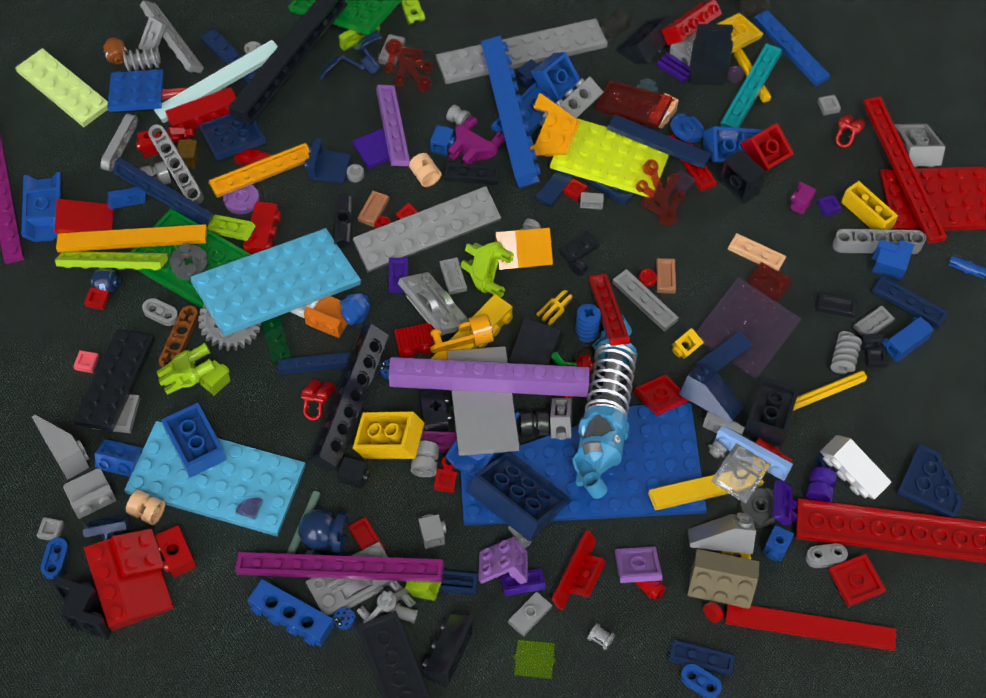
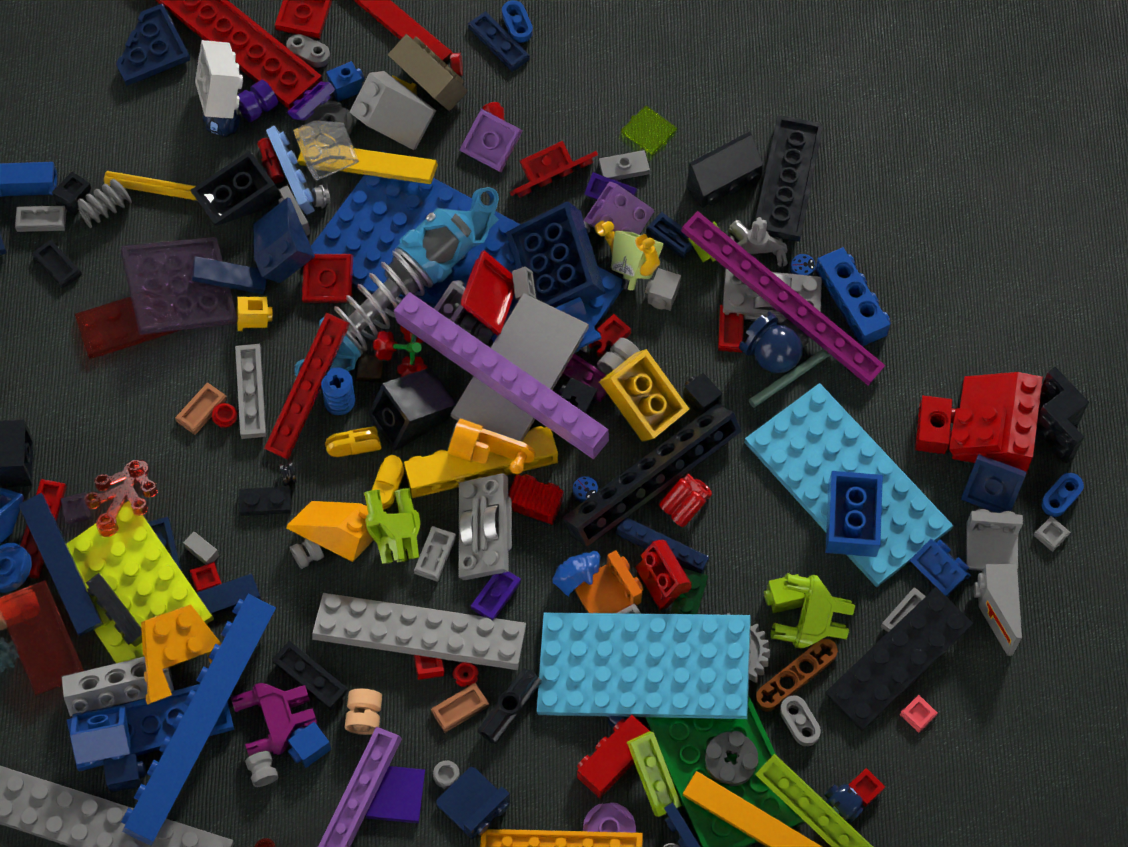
camera: 145 degrees left, 5 degrees up
(145, 506) = (941, 487): light nougat wheel -> none
(249, 507) = (834, 416): clear purple tile -> none
(297, 336) = (662, 574): none -> red brick
(470, 534) = (631, 253): none -> torso
(514, 295) = (389, 479): none -> yellow arm
(526, 462) = (523, 282): none -> light grey piece
(541, 432) = (489, 292): none -> red piece
(601, 636) = (575, 105): light grey bush -> none
(604, 135) = (115, 610): none -> black piece
(756, 252) = (79, 372): light nougat tile -> none

